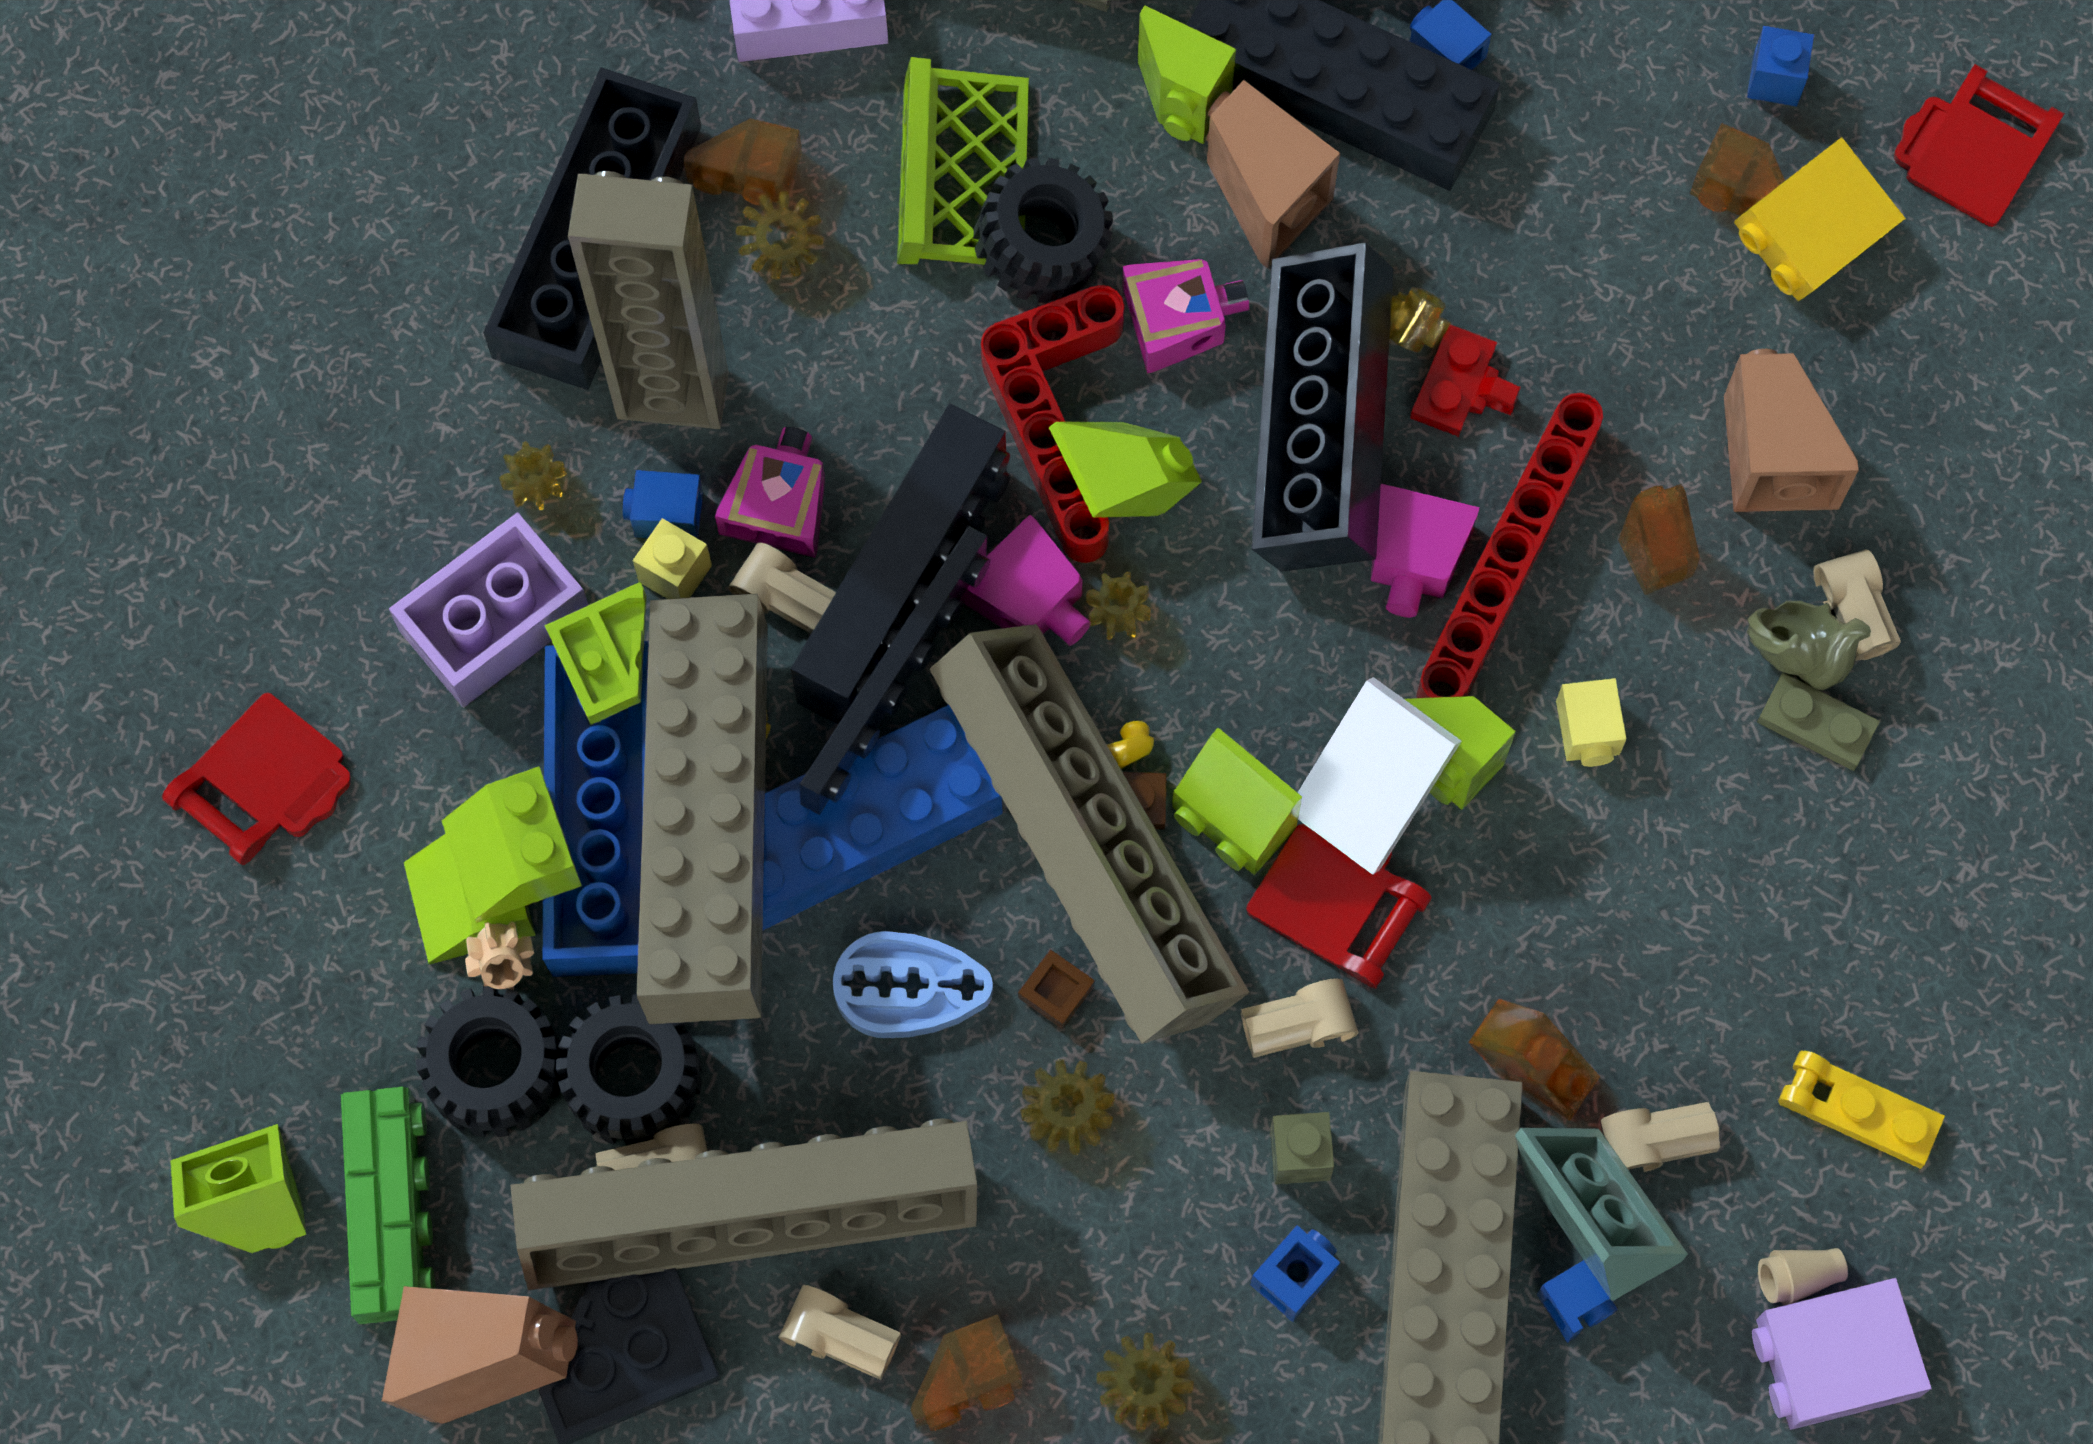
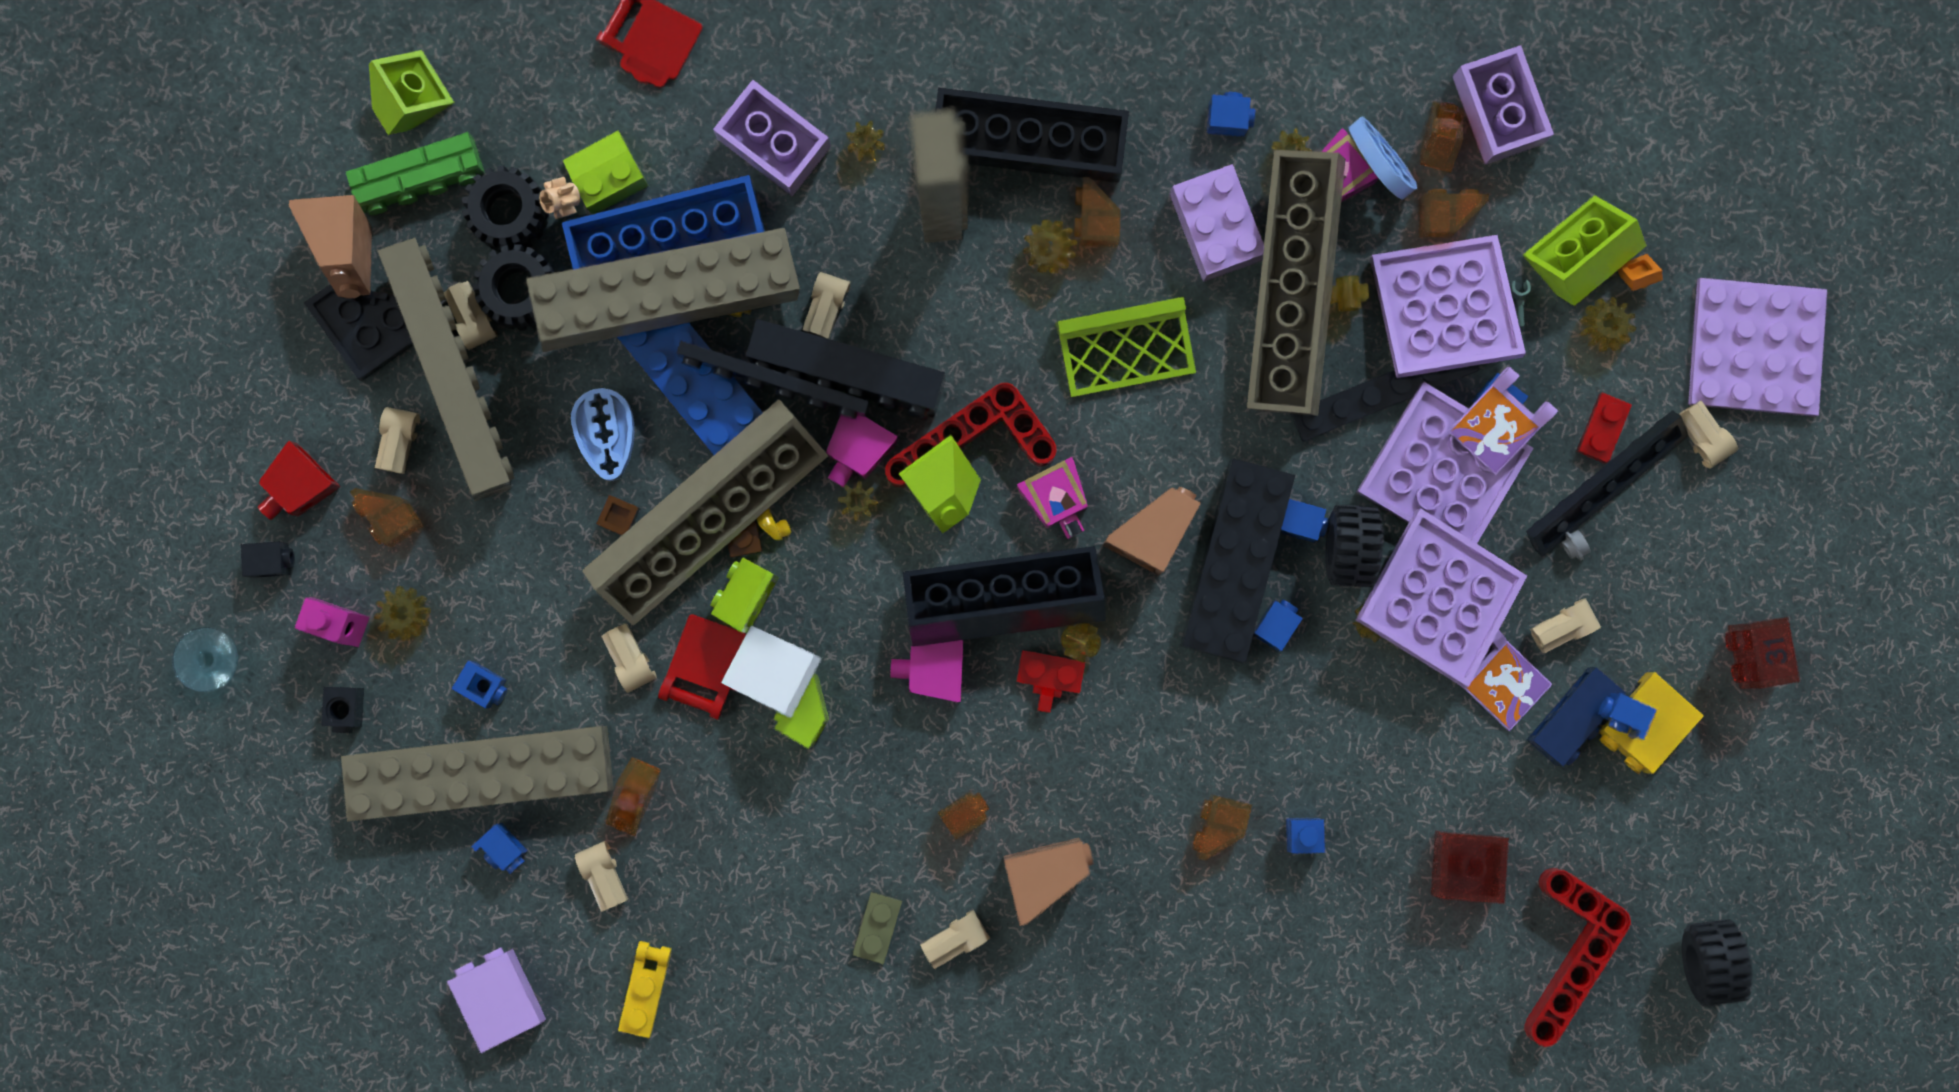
camera: 75 degrees right, 15 degrees up
(510, 846) = (618, 188): lime slope -> none
(604, 651) = (746, 209): lime wing -> none
(665, 496) = (862, 222): blue brick -> none
(672, 562) = (826, 235): light yellow brick -> none
(776, 496) = (883, 286): dark pink torso -> none
(1059, 197) = (1099, 428): black tyre -> none
(1087, 1114) = (553, 525): clear yellow gear -> none
(1182, 73) = (1207, 466): lime slope -> none
(1301, 1148) = (550, 673): olive brick -> none
(1517, 533) = (923, 727): red beam -> none
(1591, 721) = (843, 793): light yellow brick -> none
(1599, 1206) = (544, 848): sand green slope -> none
(1797, 1274) = (539, 969): tan cone -> none
(1807, 641) = (922, 911): olive hair -> none
(1818, 220) = (1200, 877): yellow panel -> none
(1969, 153) = (1275, 964): red piece -> none

